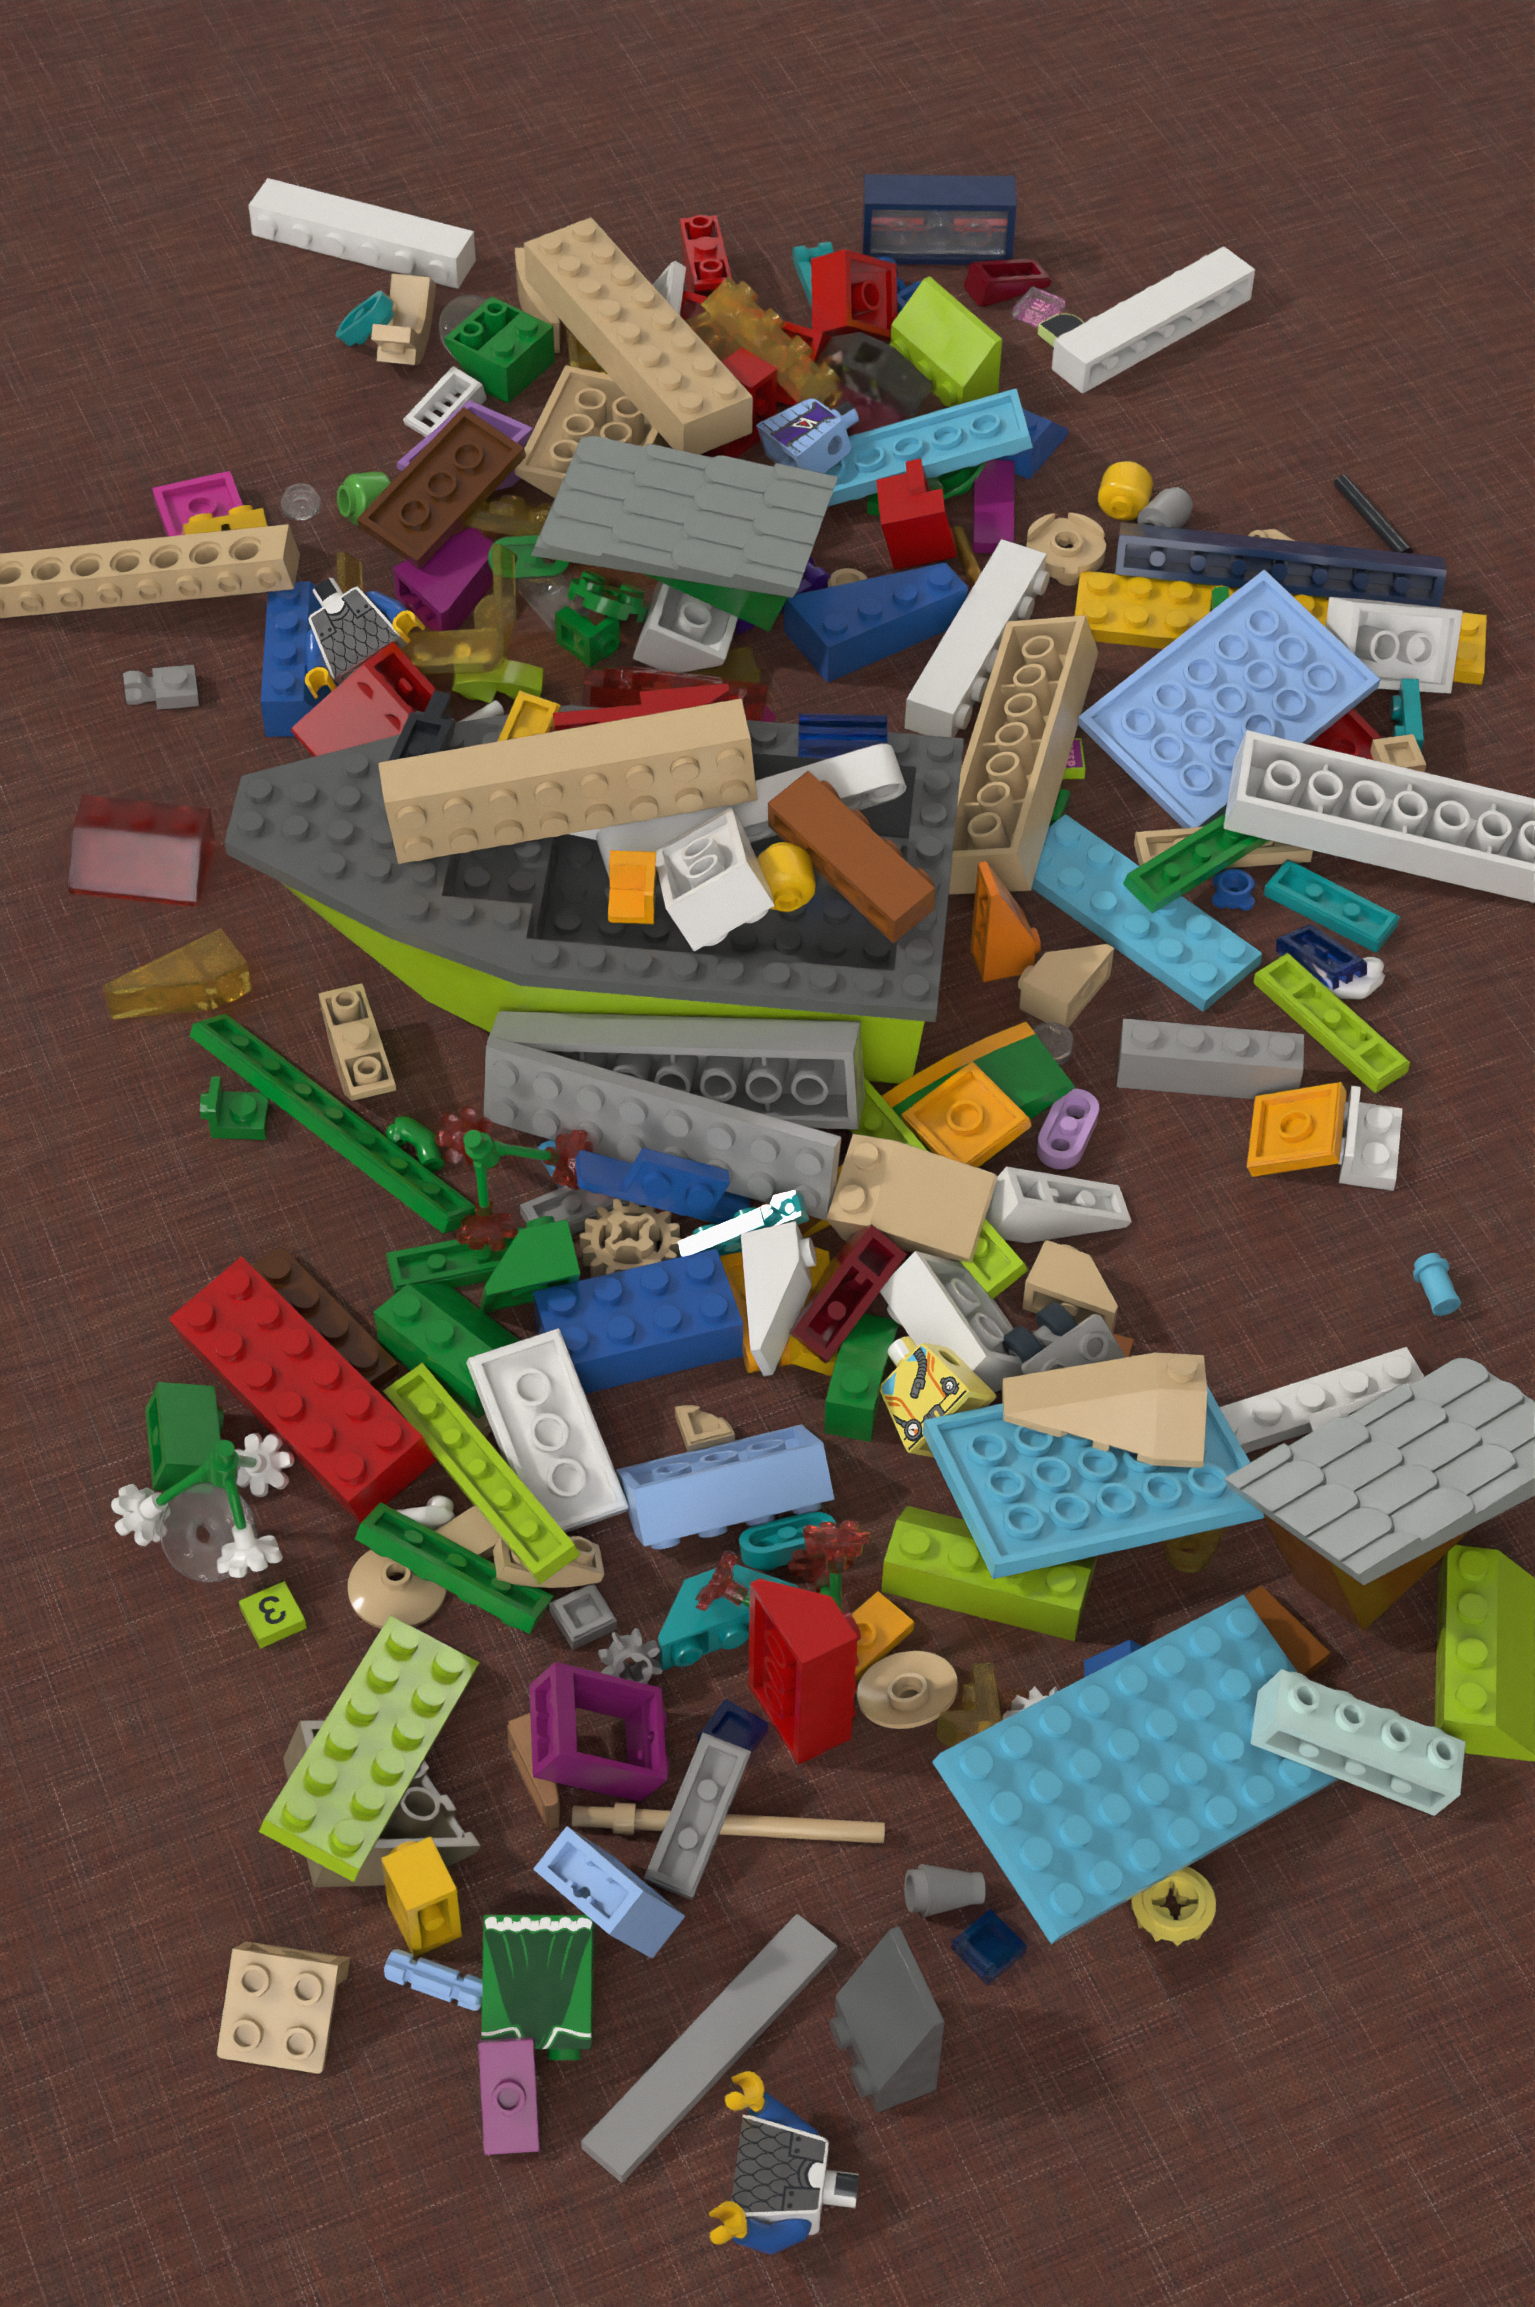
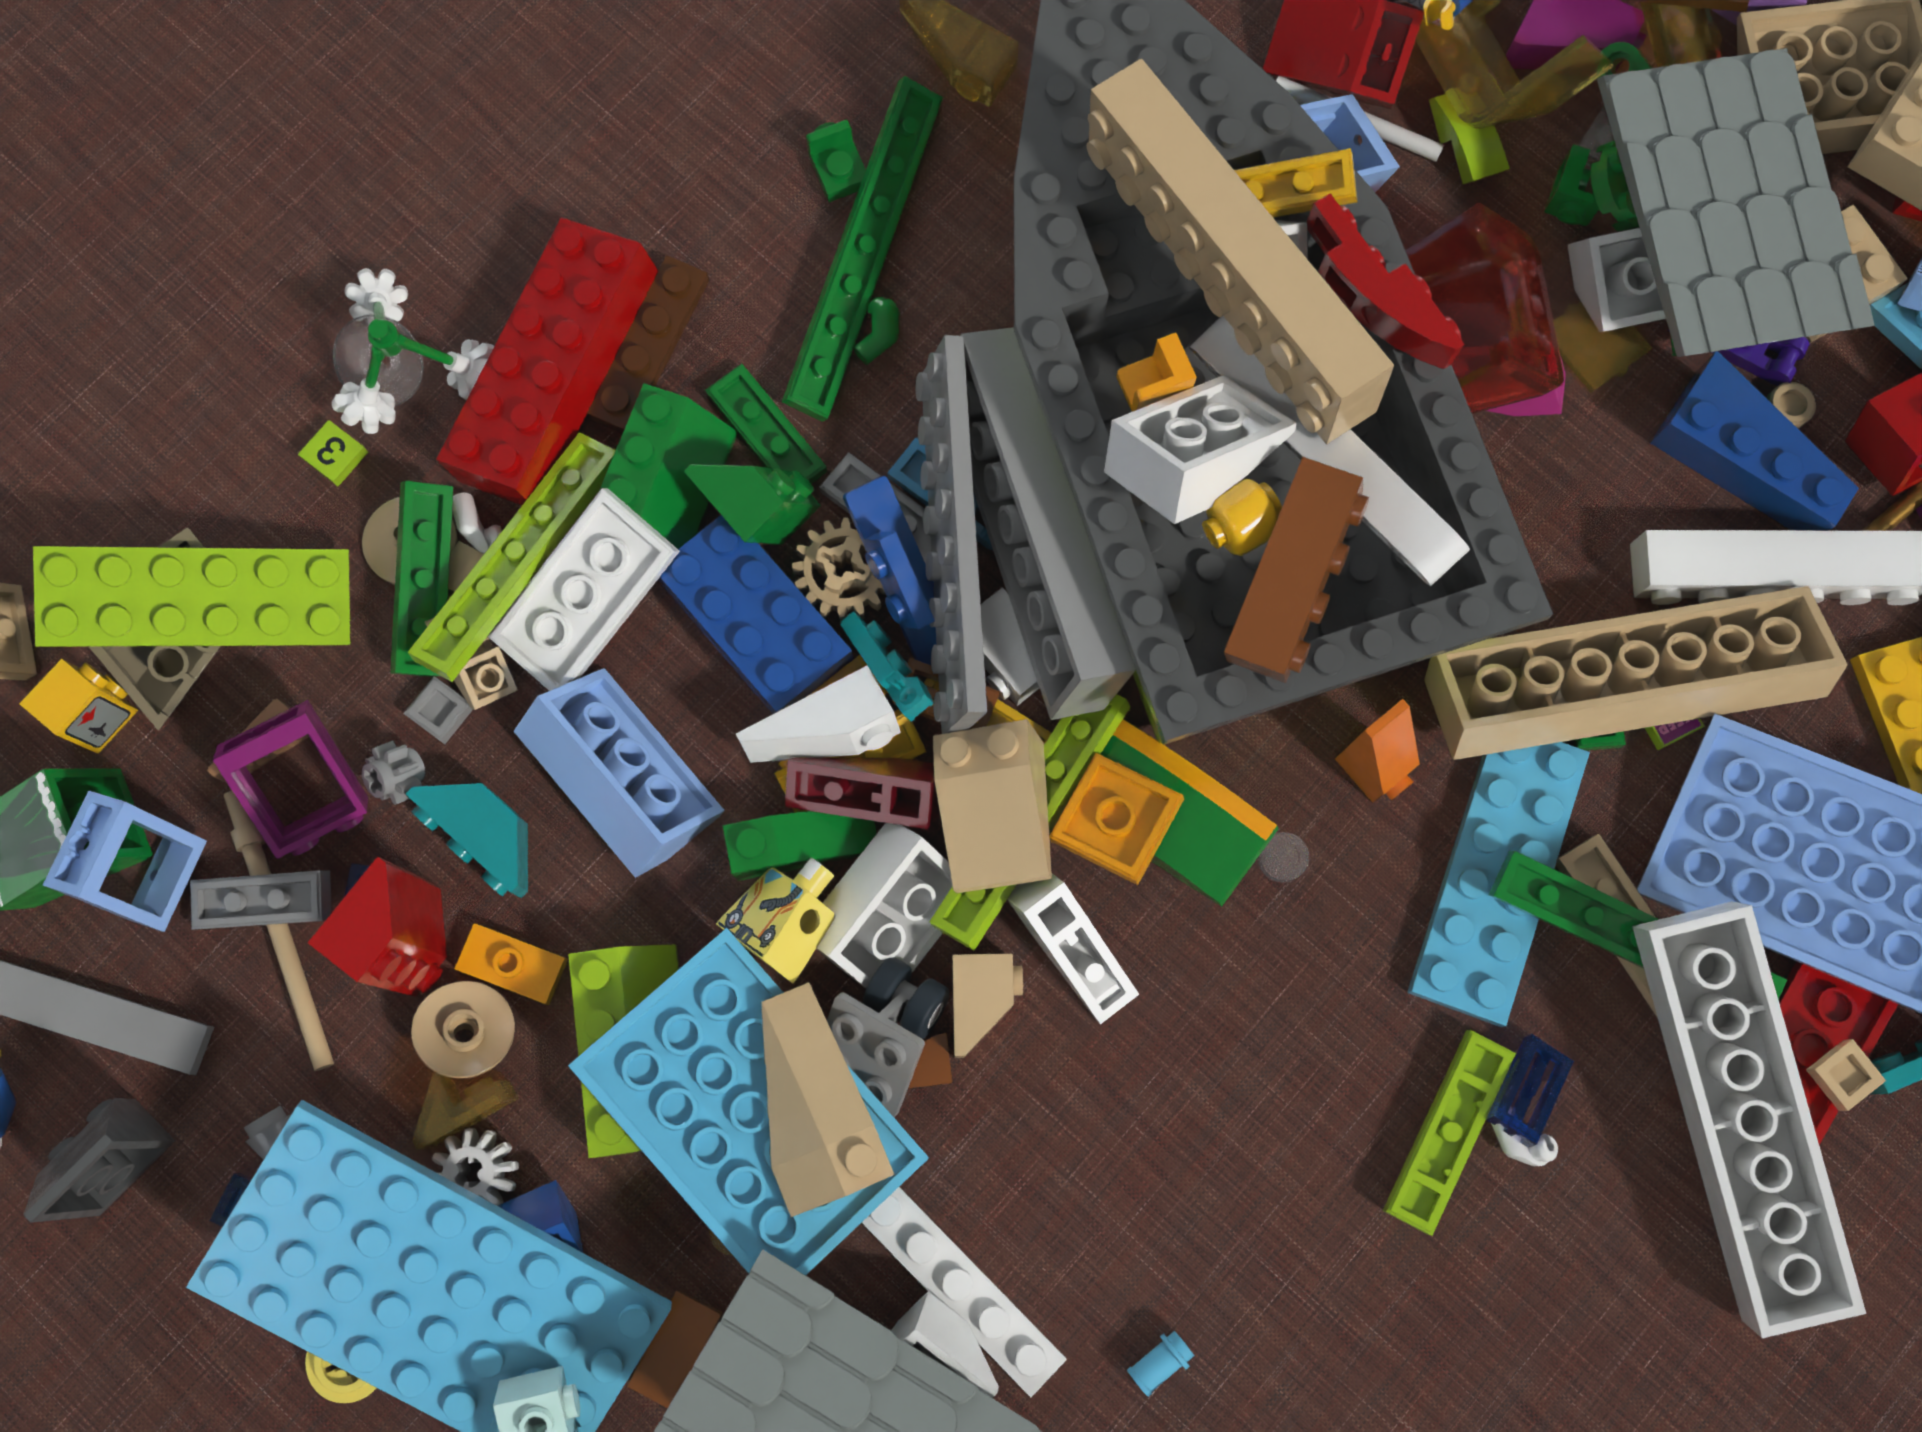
camera: 65 degrees right, 25 degrees up
(181, 1431) = (462, 294): green brick -> none
(355, 1043) = (944, 227): tan slope -> none
(427, 730) = (1240, 93): black hinge -> none
(434, 1979) = (38, 747): light blue axle -> none
(468, 1139) = (807, 436): clear red plant -> none
(701, 1428) = (679, 724): tan tile -> none
(773, 1542) = (585, 855): teal plate -> none
(826, 1556) = (505, 907): clear red plant -> none
(835, 733) = (1491, 477): clear blue tile -> none
(1064, 982) = (1359, 841): tan slope -> none
(1066, 1132) = (1177, 918): lavender plate -> none
(1208, 1059) = (1330, 1028): light grey brick -> none
(1233, 890) = (1591, 971): blue plate -> none
(1297, 1129) = (1283, 1150): light orange plate -> none
(1331, 906) = (1615, 1073): teal tile -> none
(1369, 1143) = (1312, 1227): white bracket -> none

